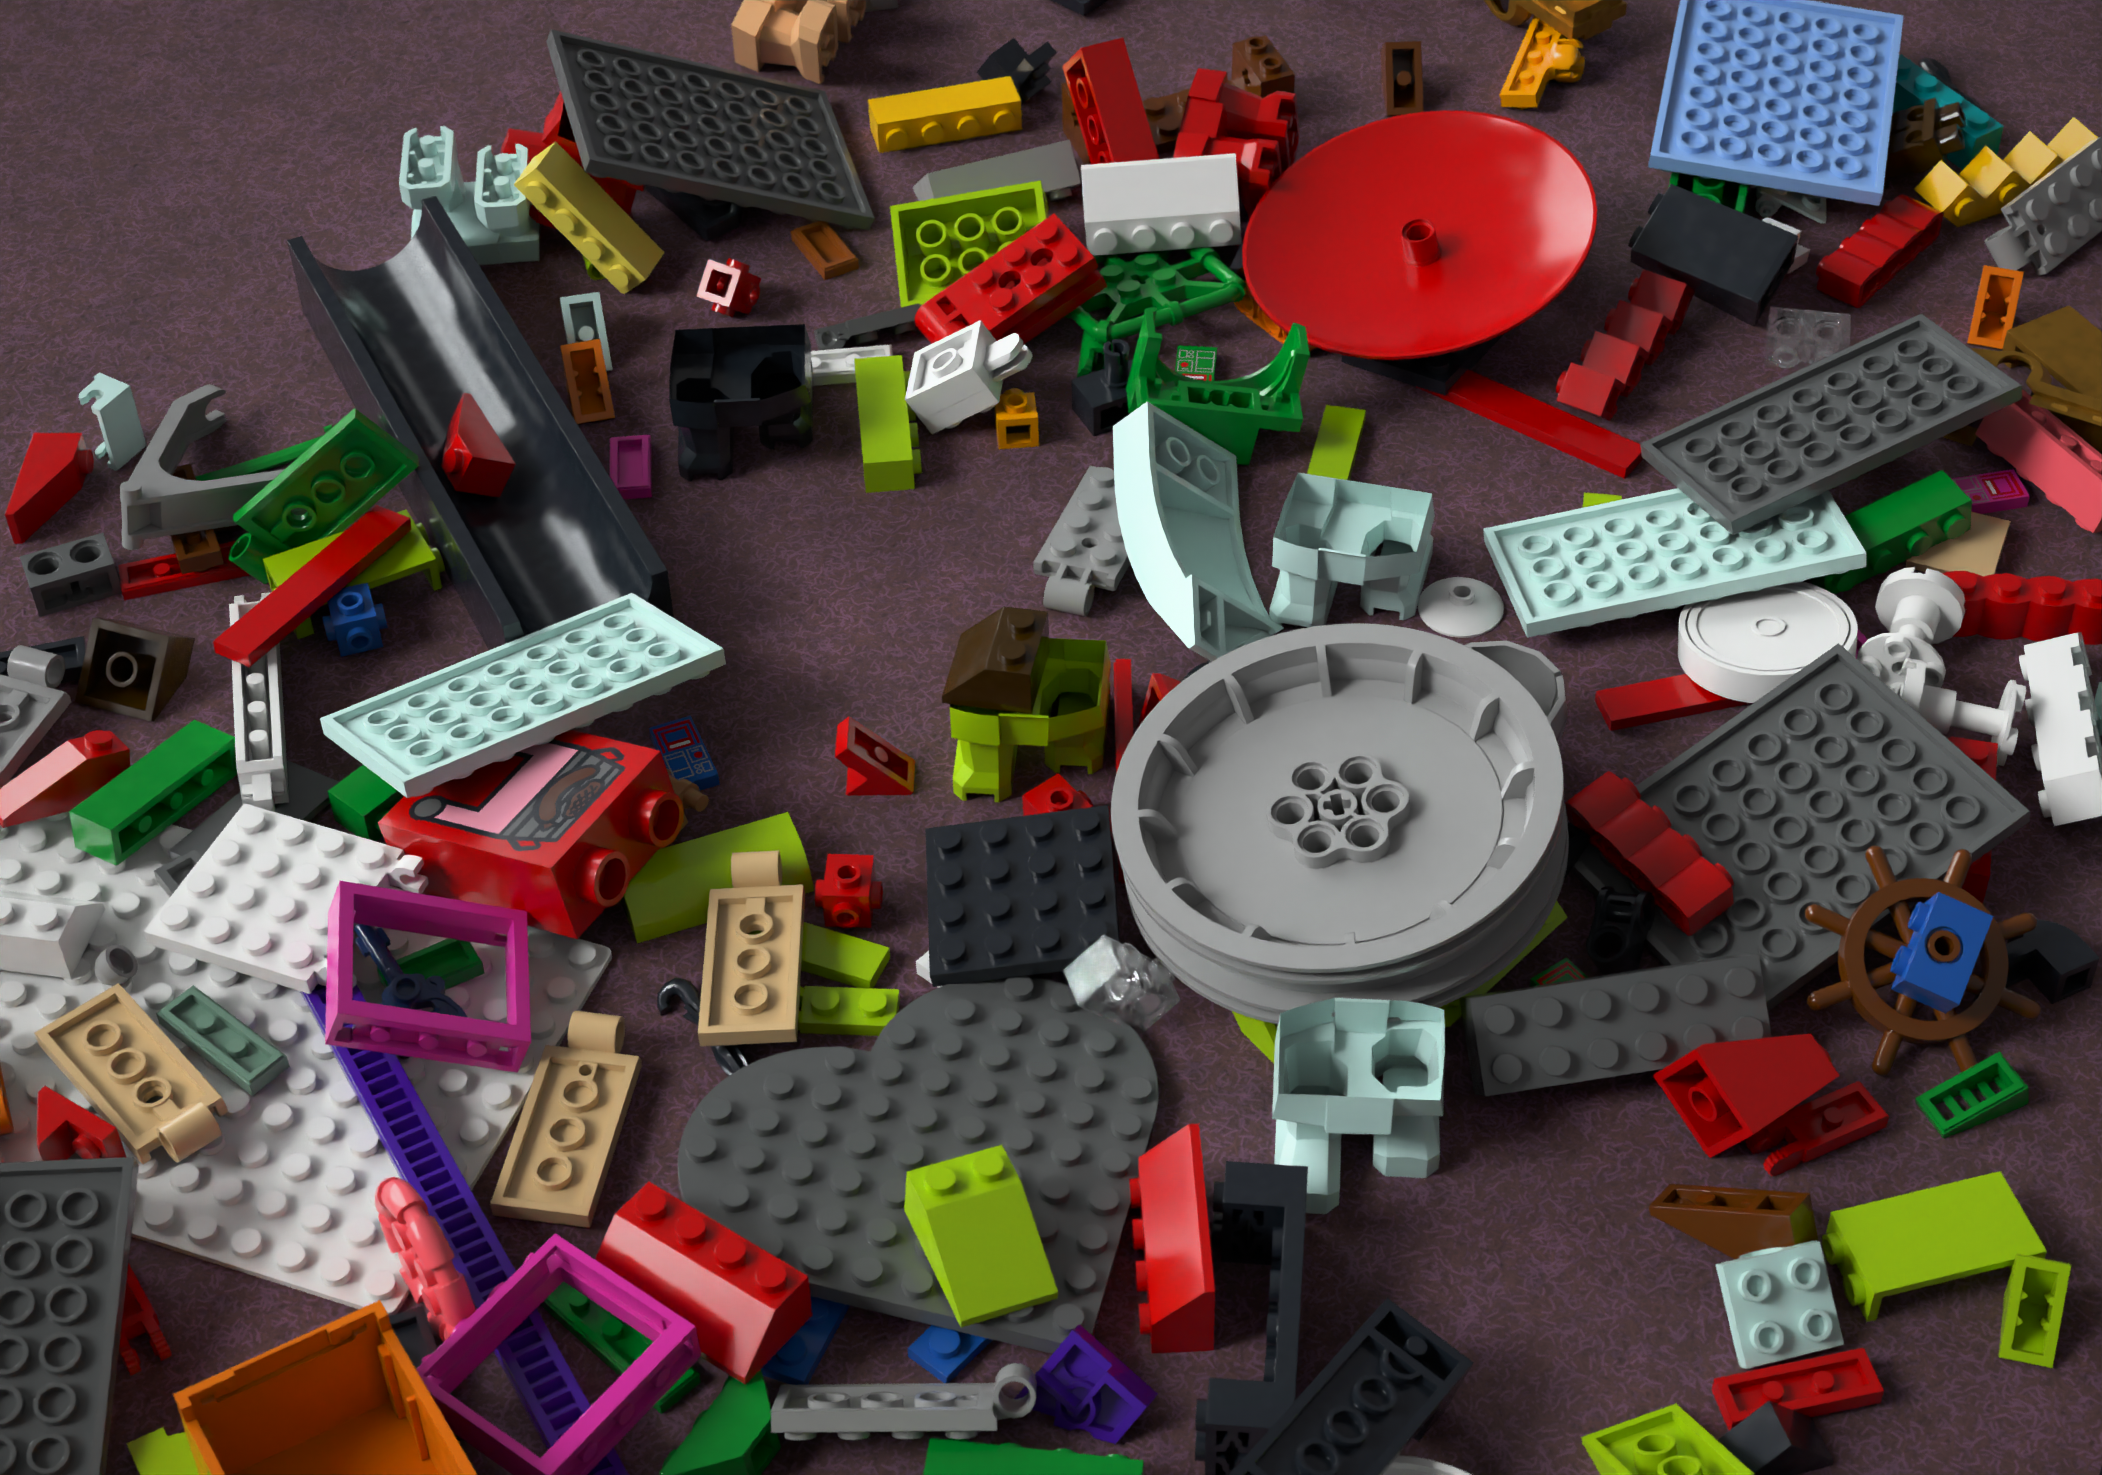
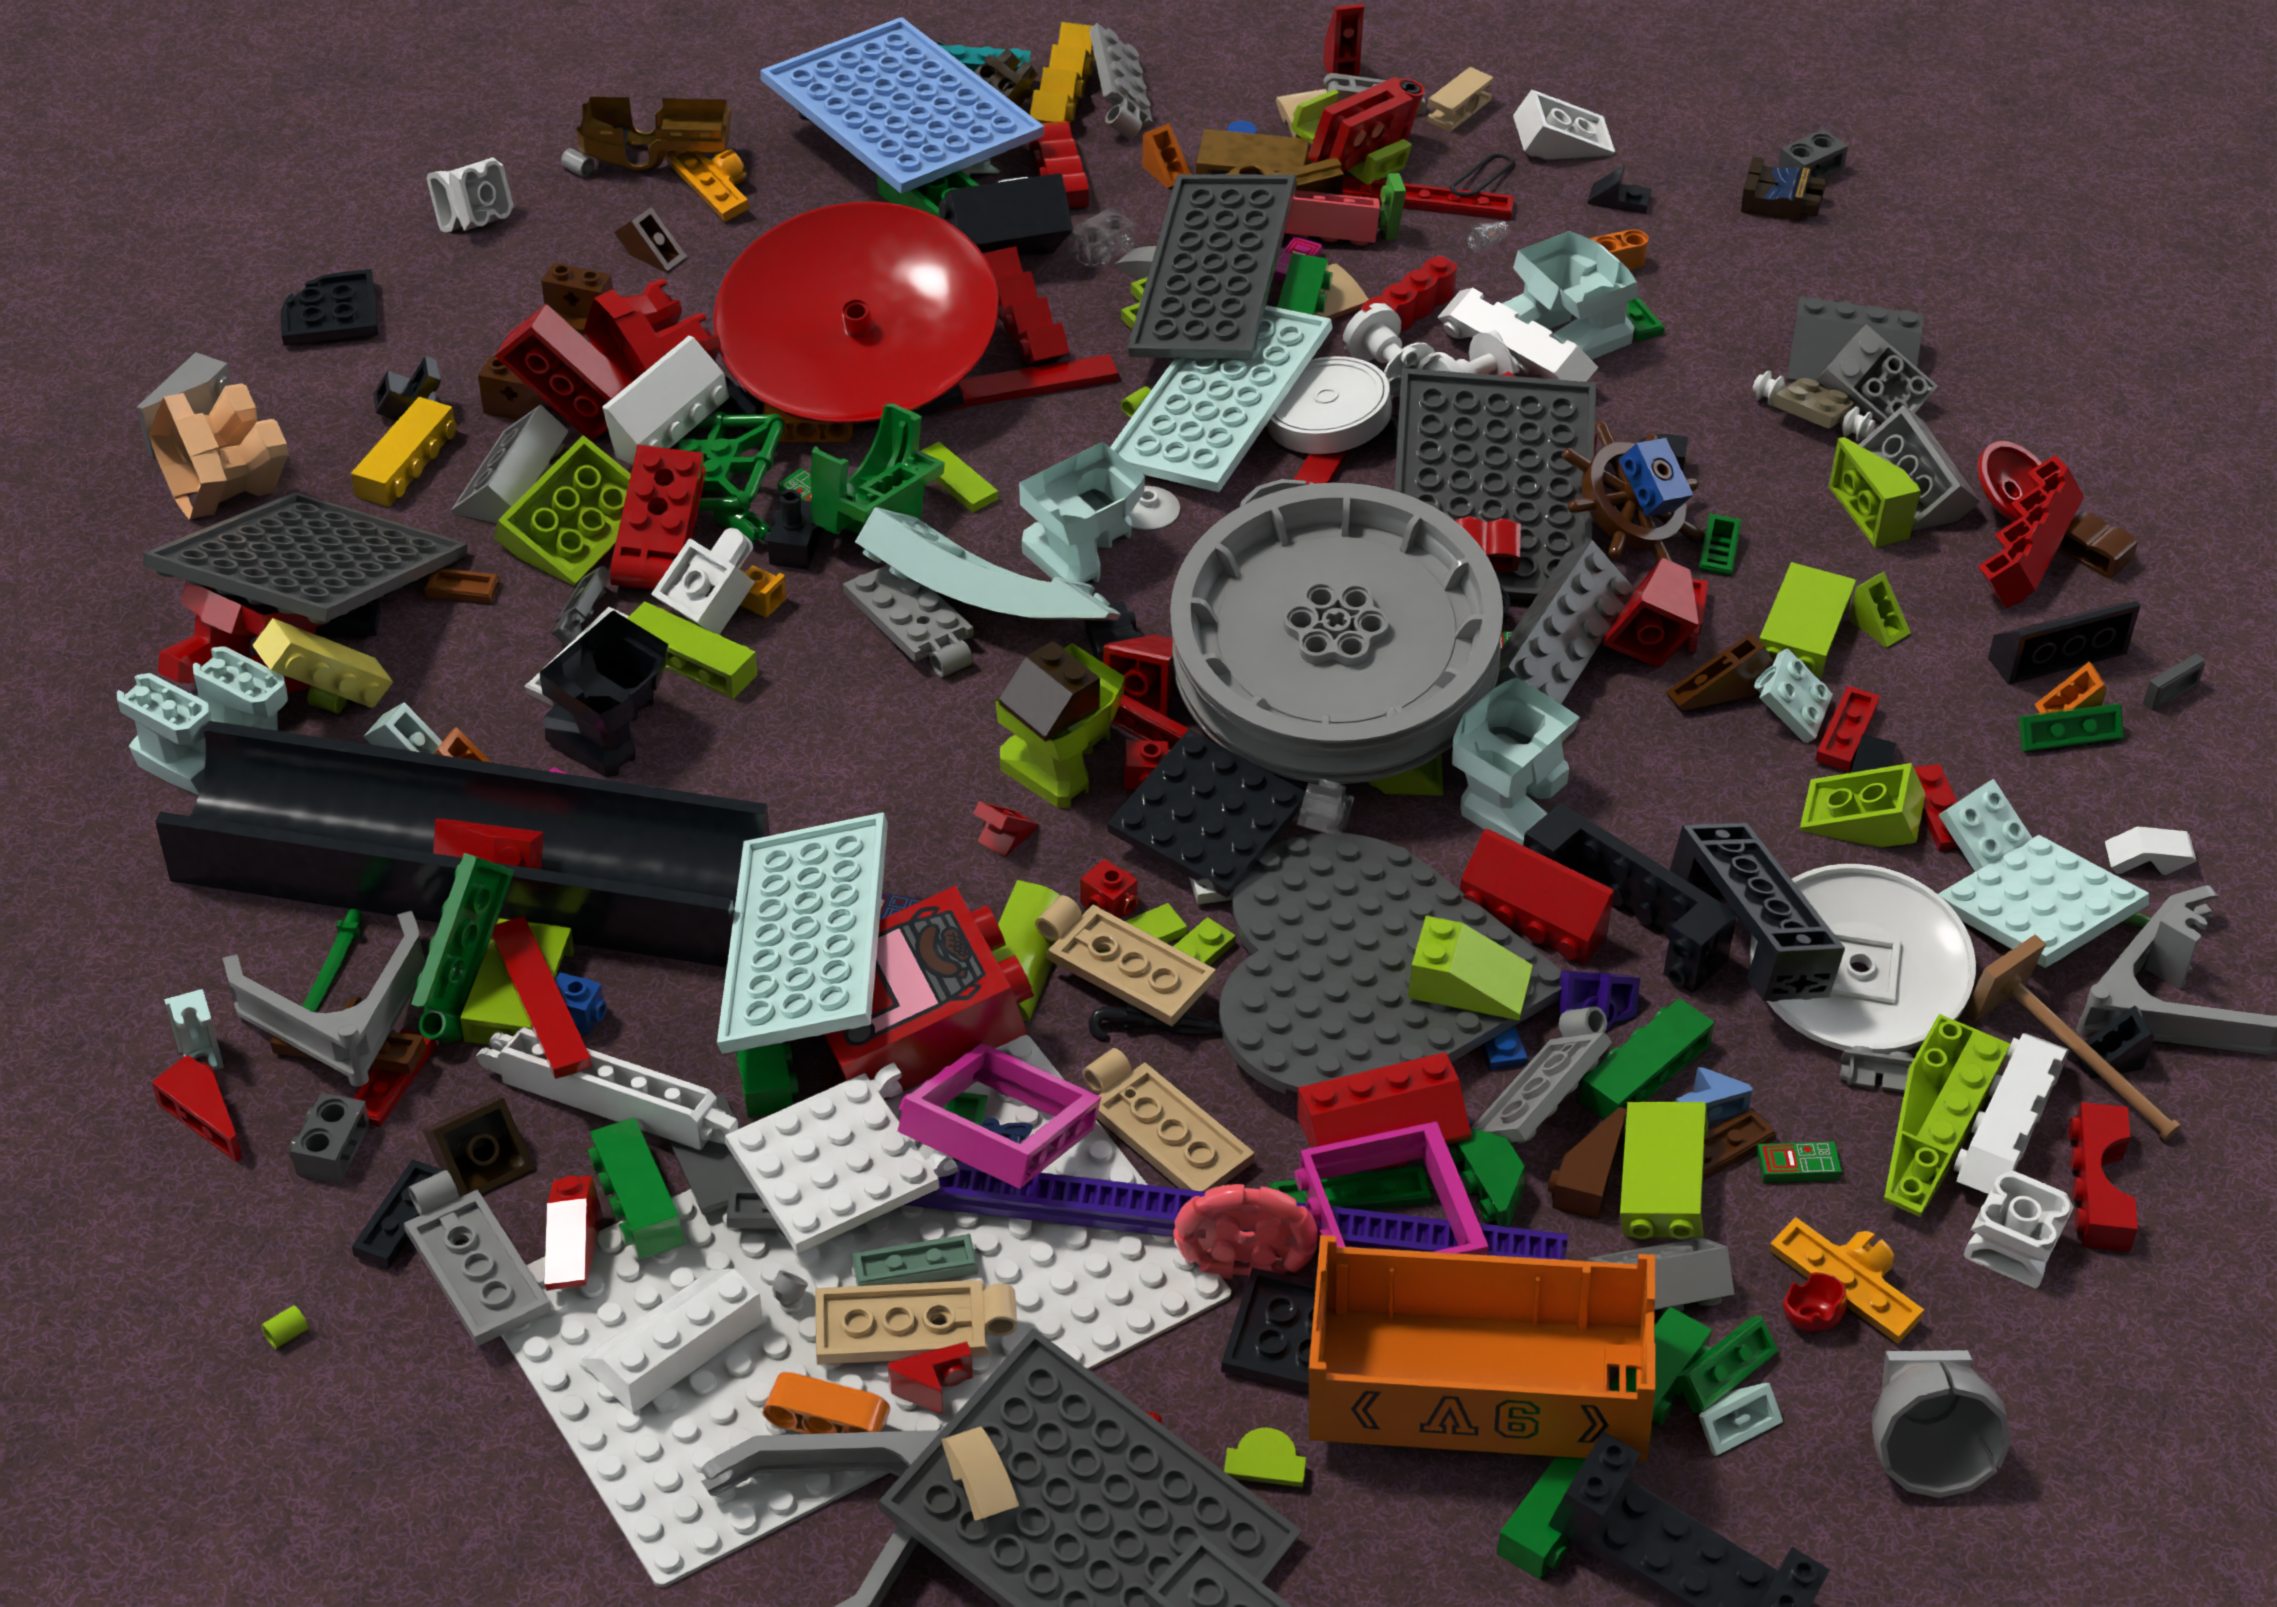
camera: 55 degrees left, 0 degrees up
(729, 287) = (471, 641): red brick -> none

